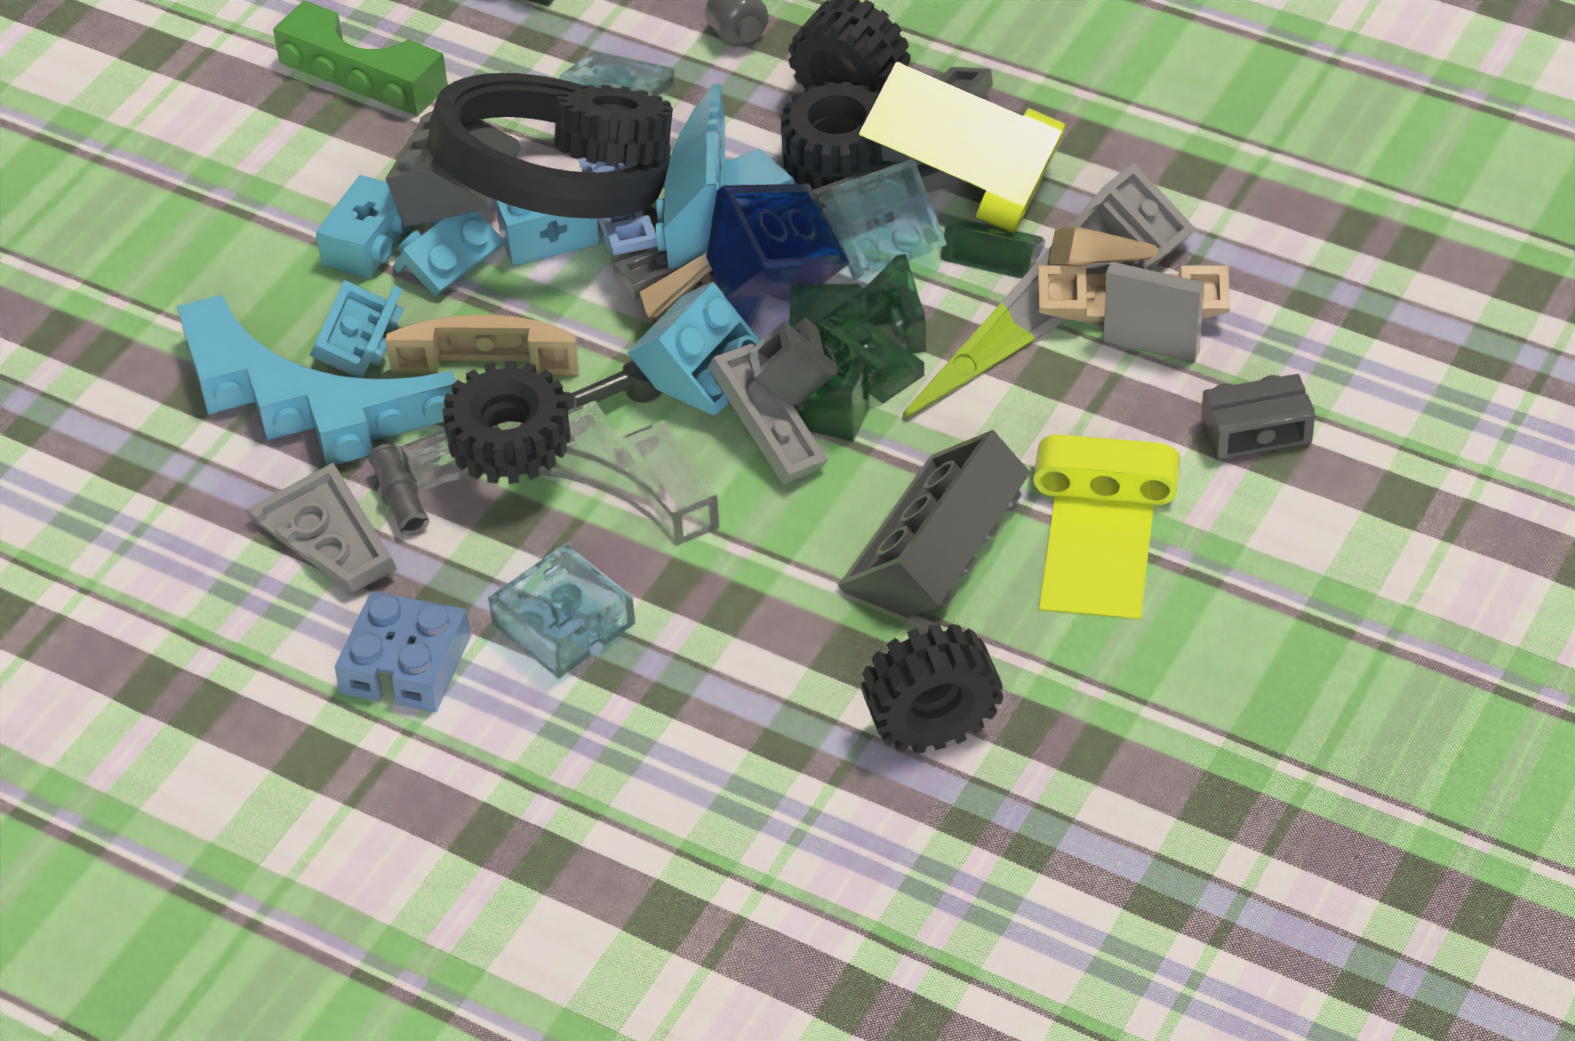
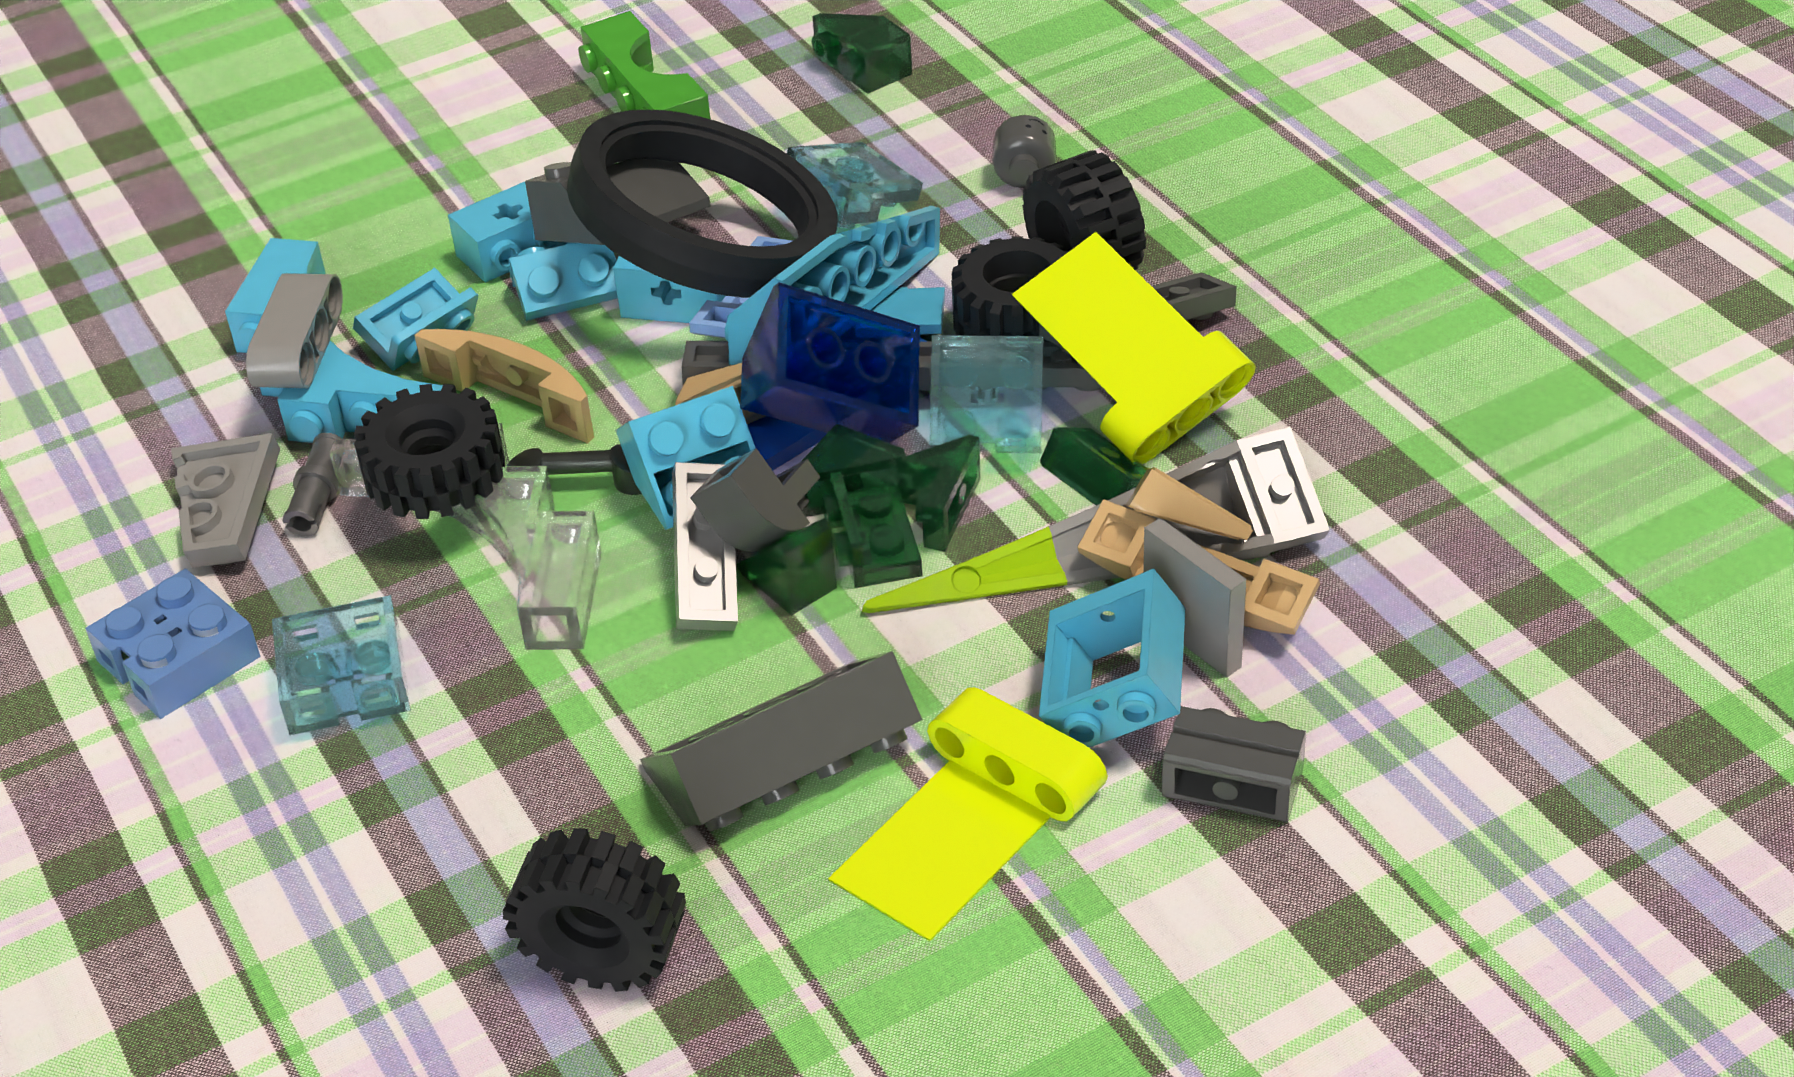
camera: 30 degrees right, 5 degrees down
(295, 371) = (294, 330): none -> light grey beam
(613, 125) = (757, 198): black tyre -> none
(1094, 364) = (1081, 633): none -> medium azure window

